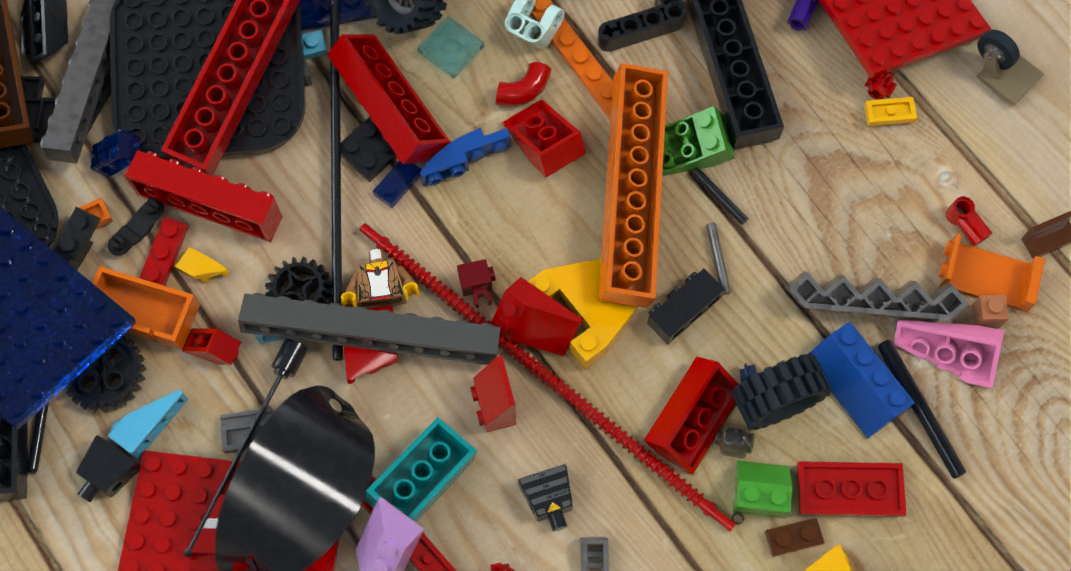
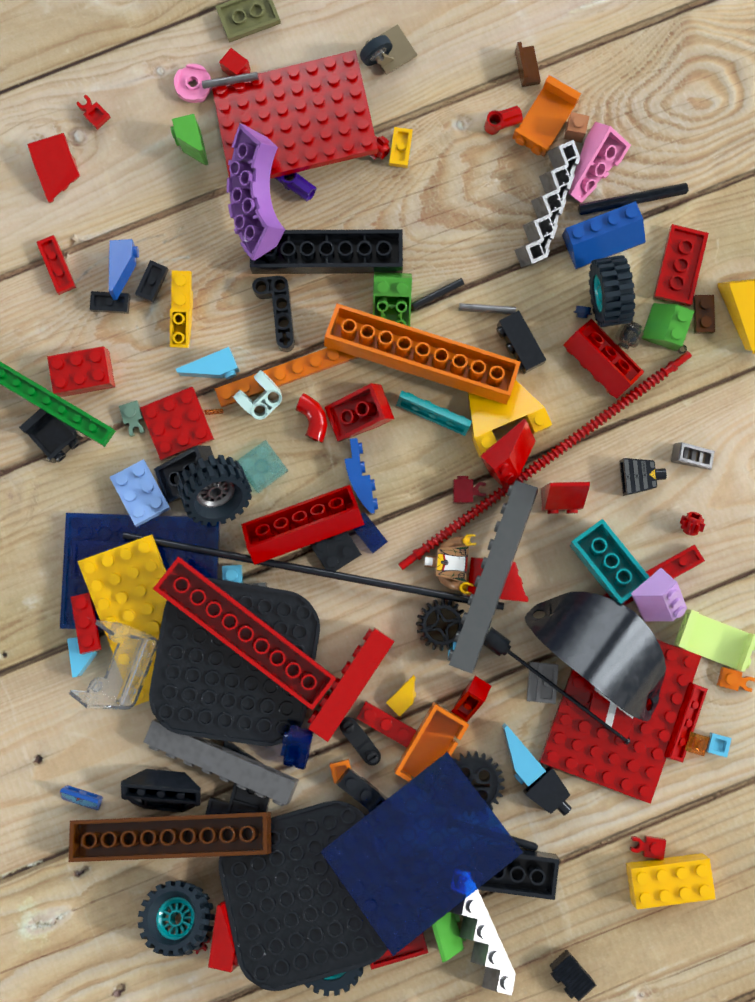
camera: 75 degrees left, 15 degrees up
(566, 216) = (433, 413): none -> teal plate

